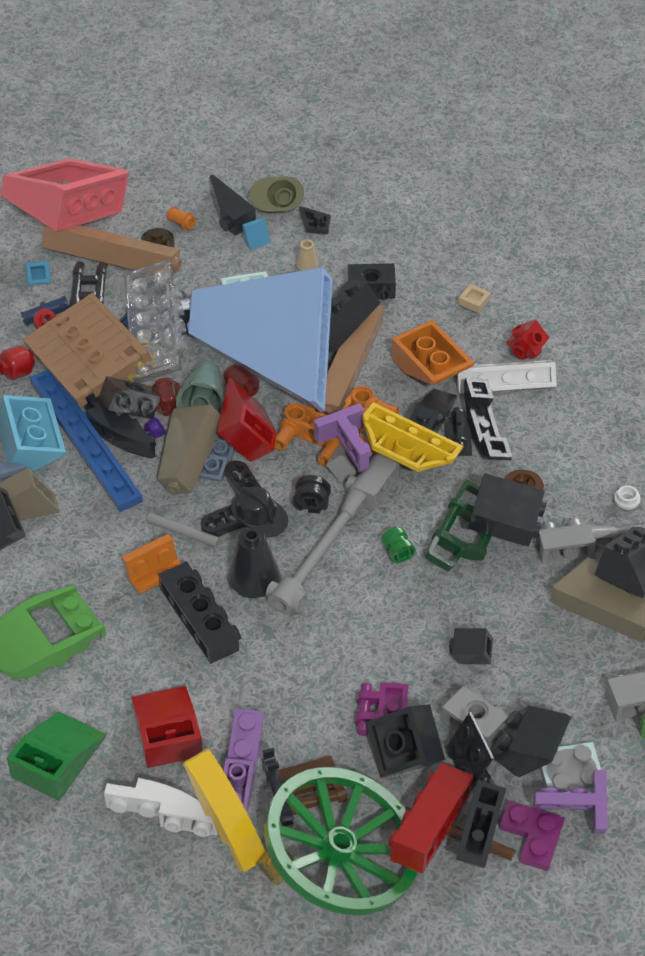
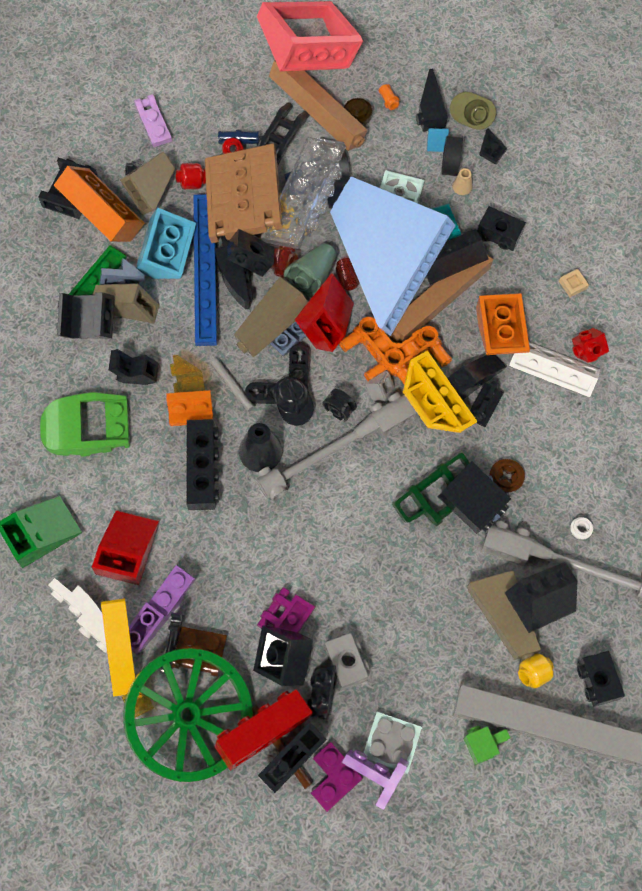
camera: 25 degrees right, 20 degrees up
(38, 273) = (253, 99): dark azure slope -> none
(68, 558) = (133, 370): none -> black brick
(127, 536) = (188, 376): none -> clear yellow slope
(156, 428) = (261, 285): dark purple hinge -> none
(281, 238) = (452, 156): none -> black tyre
(345, 426) = (393, 359): medium lavender bracket -> none
(398, 544) = (379, 481): green wheel -> none
(471, 646) = (379, 600): black brick -> none
(482, 422) = (510, 402): black slope -> none
(530, 739) = (372, 705): black slope -> none

